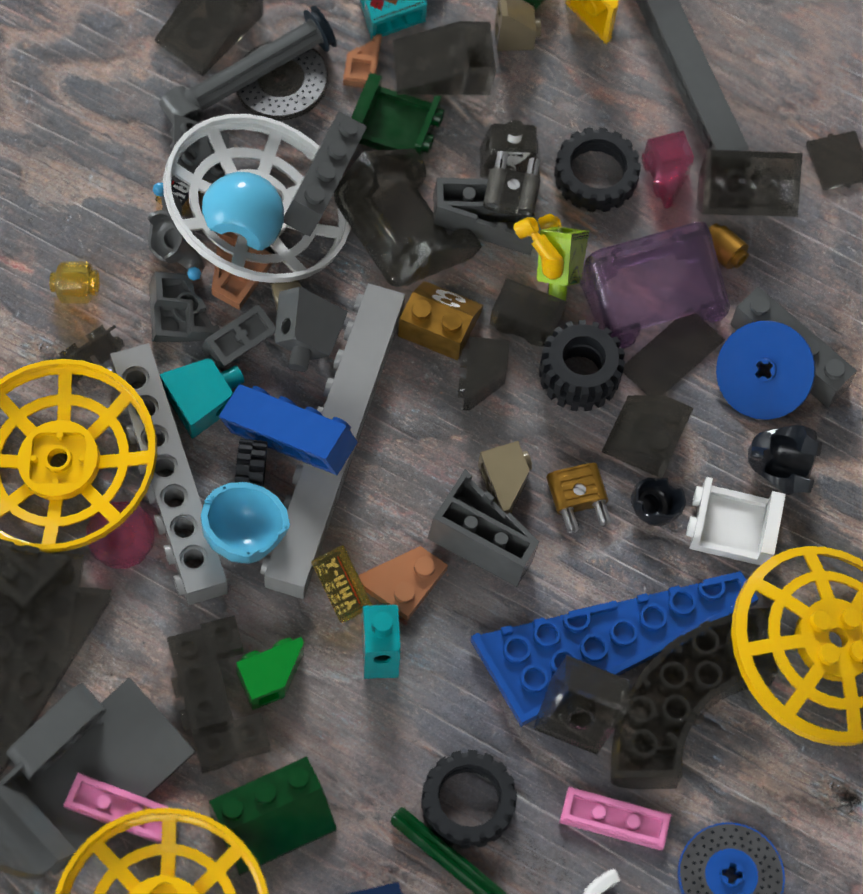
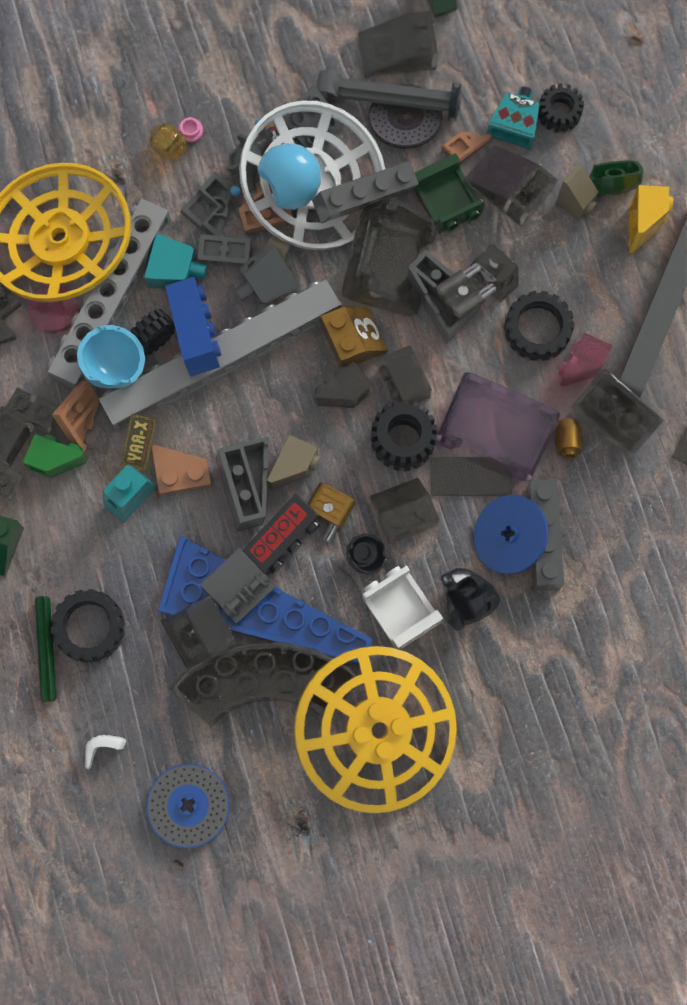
camera: 50 degrees right, 10 degrees up
(84, 251) = (191, 129): none -> bright pink plate
(100, 344) = (147, 189): clear smoke hinge -> none
(252, 607) = (77, 413): none -> nougat wing
(559, 252) = (454, 353): torso -> none
(567, 549) = (282, 535): none -> brick
(575, 628) = (238, 585): none -> dark grey hinge
(615, 818) = (158, 712): bright pink tile -> none

